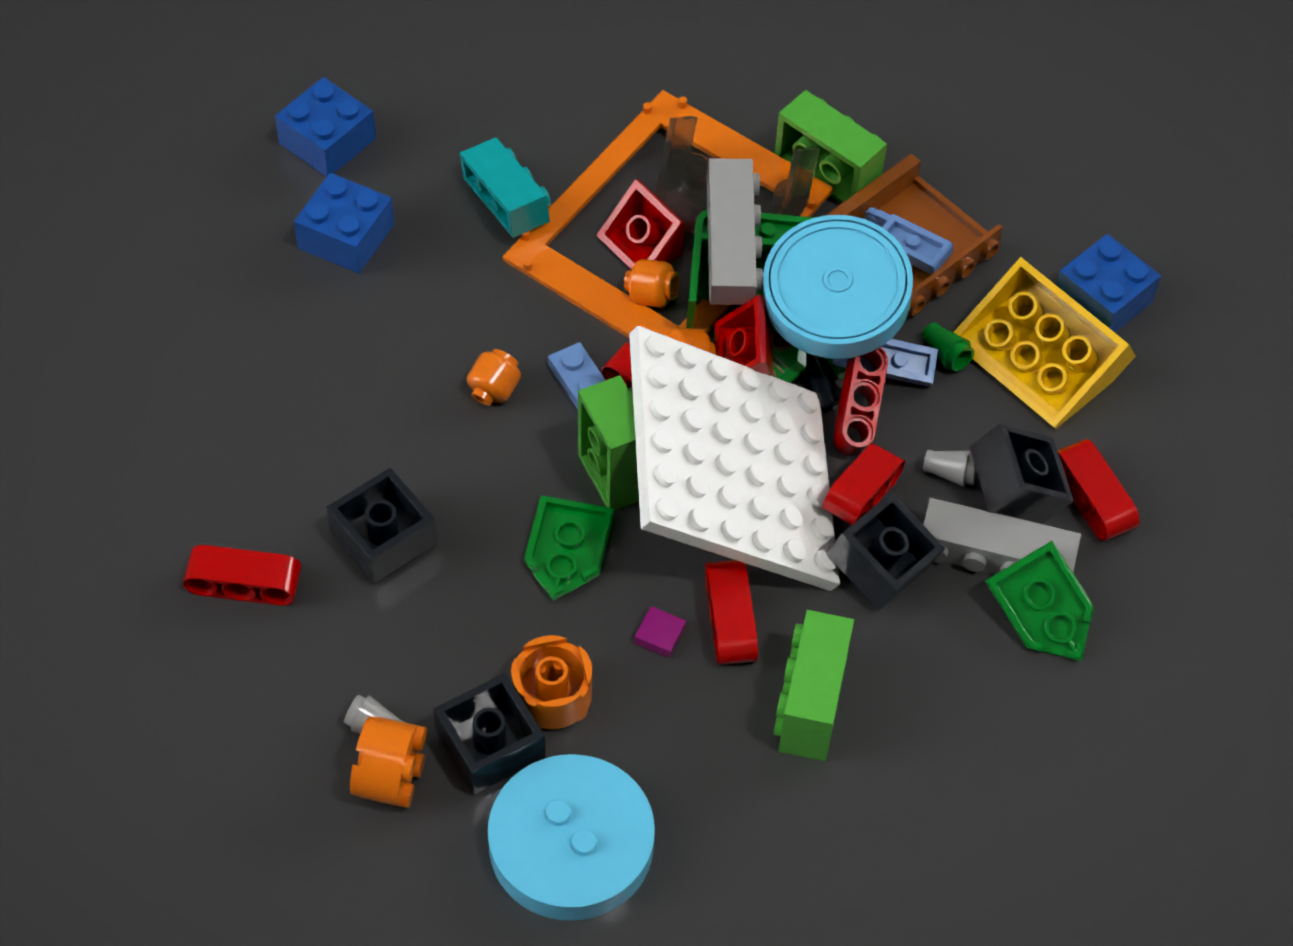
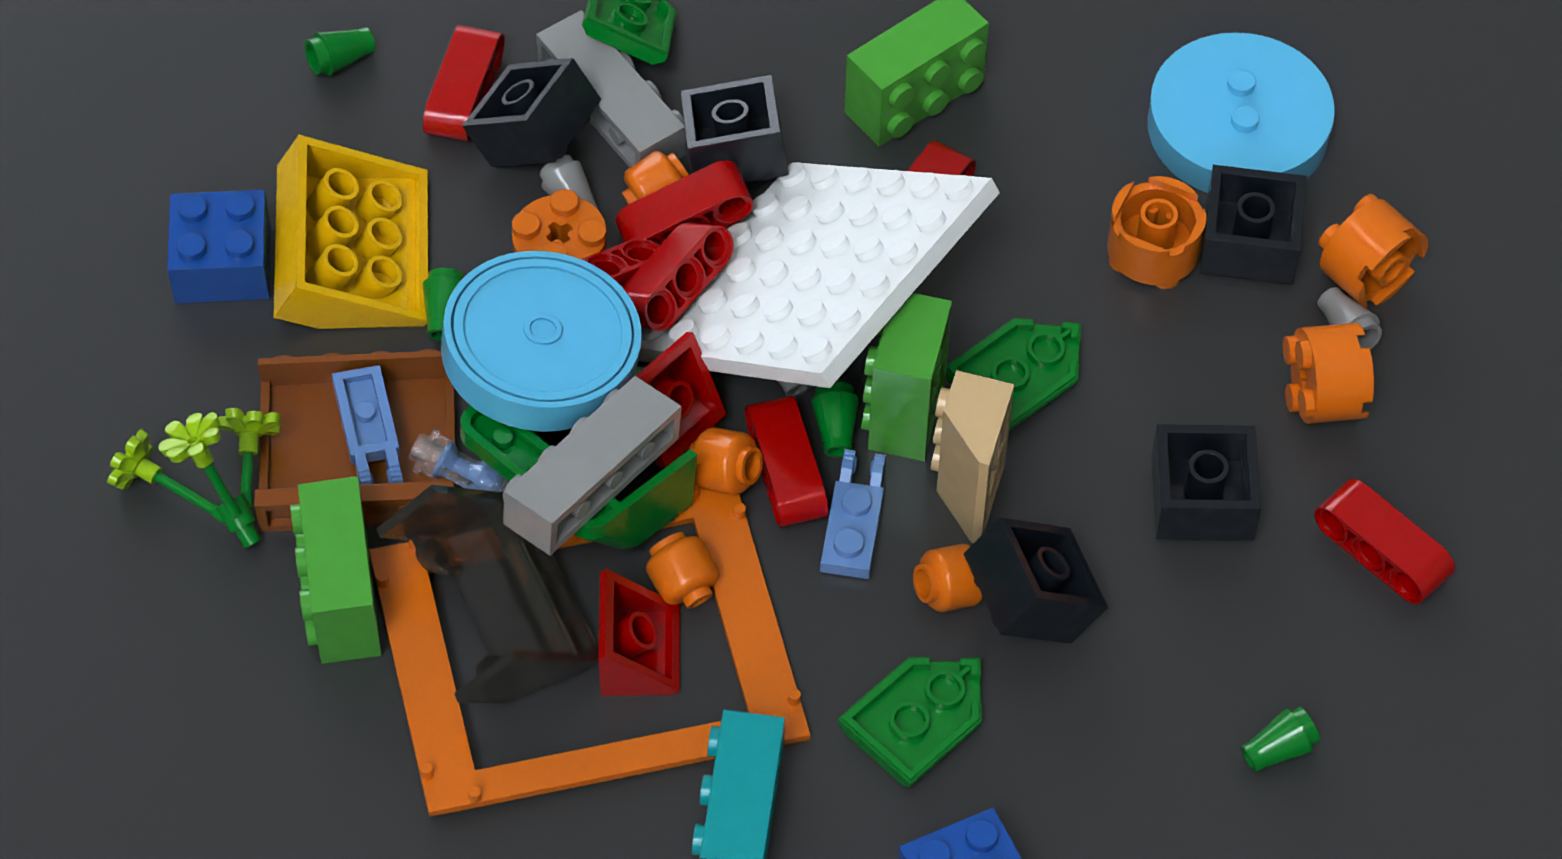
camera: 140 degrees left, 0 degrees up
(222, 414) = (1283, 739): none -> green cone
(354, 646) = (1328, 373): none -> orange brick
(435, 386) = (1035, 580): none -> black brick
(450, 302) = (917, 715): none -> green tile
(534, 421) = (971, 447): none -> tan slope
(660, 631) = (1002, 234): magenta tile -> none
(821, 422) = (678, 273): none -> red beam
(910, 491) = (651, 175): none -> orange head
(915, 415) = (560, 225): none -> orange brick
(961, 188) = (194, 442): none -> lime plant
(1195, 457) = (337, 49): none -> green cone

